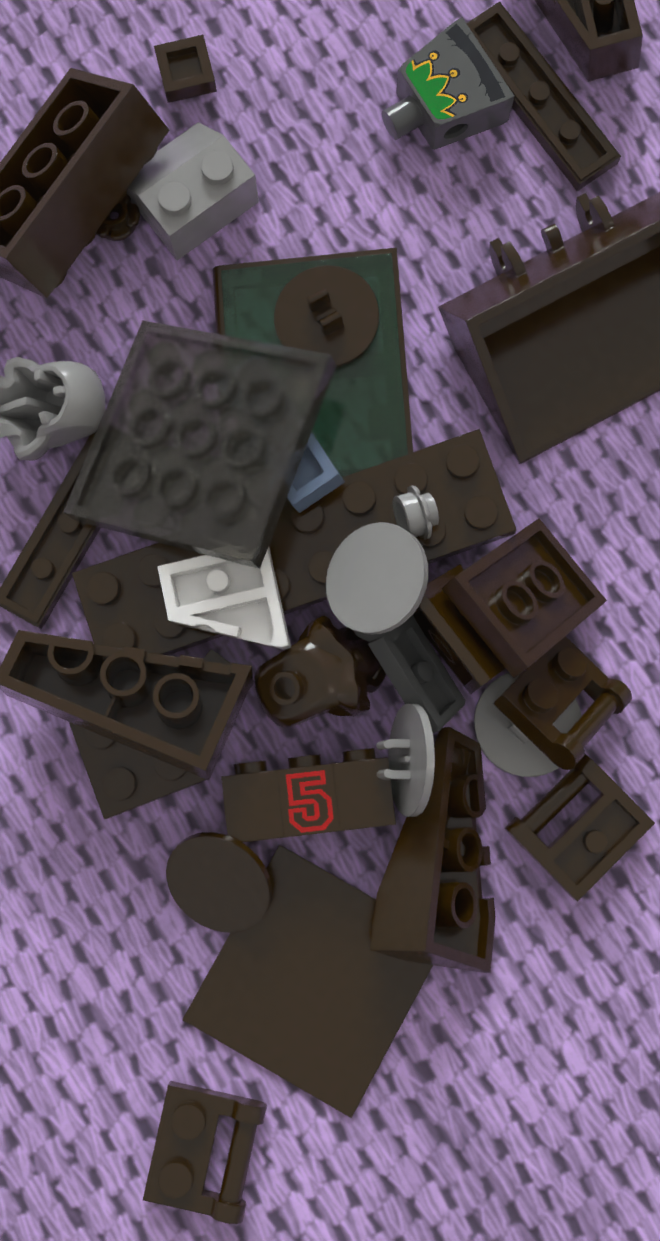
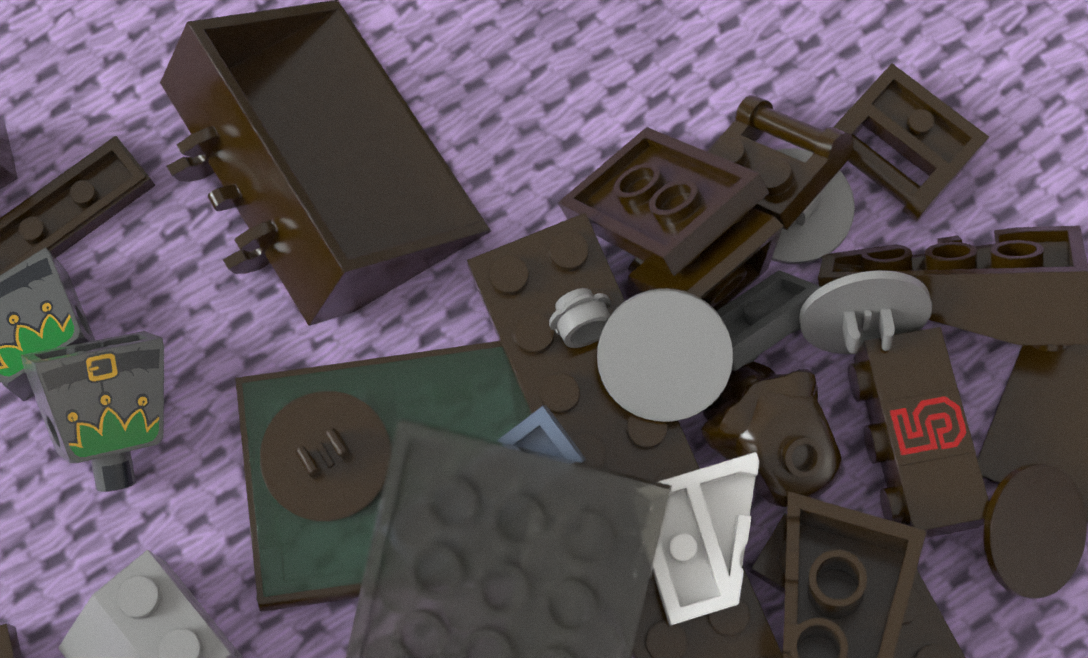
camera: 95 degrees left, 10 degrees down
(380, 139) = (102, 401): none -> torso

